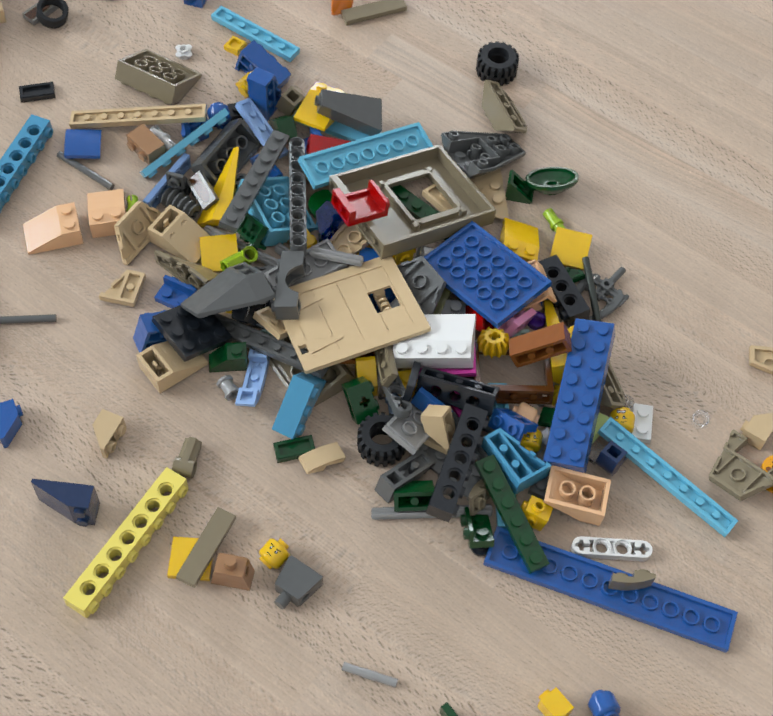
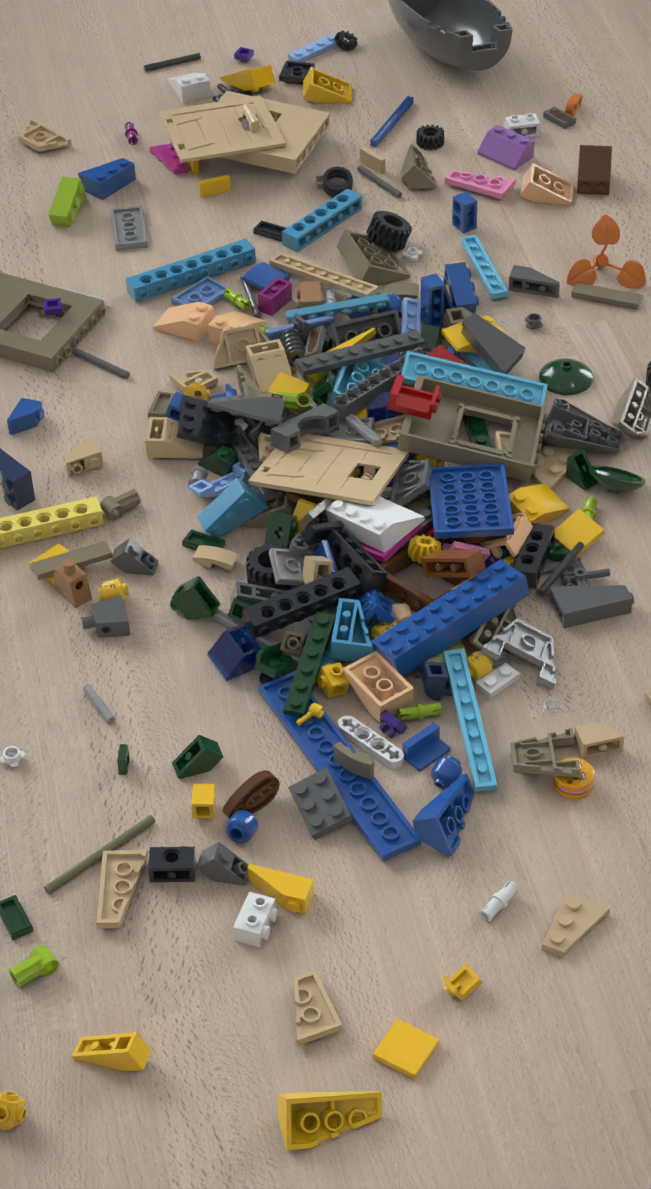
camera: 45 degrees right, 15 degrees down
(39, 193) = (204, 291): none -> medium blue tile
(74, 58) = (322, 220): none -> dark azure brick
(79, 181) = (237, 299): none -> lime pin
(112, 160) = (275, 296): none -> magenta panel
(119, 331) = (160, 404): none -> dark tan tile
(145, 302) = (197, 388): none -> yellow brick
(149, 39) = (389, 230): none -> black tyre
(215, 93) = (408, 290): none -> dark tan slope
(257, 508) = (134, 559): none -> dark grey slope
(308, 28) = (532, 282): none -> dark grey slope
(344, 65) = (533, 321): none -> dark grey plate
(355, 515) = (194, 600): none -> dark green torso
(416, 104) = (566, 376): none -> dark green dish
(436, 543) = (234, 652): none -> clear blue slope
(506, 669) = (197, 757): none -> dark green slope
(554, 553) = (314, 710): none -> yellow hand
(588, 674) = (253, 794): none -> reddish brown piece
(614, 519) = (392, 723): none -> dark purple tile
(620, 493) = (419, 711): none -> lime pin
(637, 637) = (320, 803): none -> dark grey plate
(638, 308) = (589, 603): none -> dark grey slope
(640, 375) = (529, 644): none -> light grey wing
(656, 525) = (425, 747): none -> blue panel
(694, 536) = (446, 771): none -> blue head
(736, 586) = (443, 817): none -> blue wedge

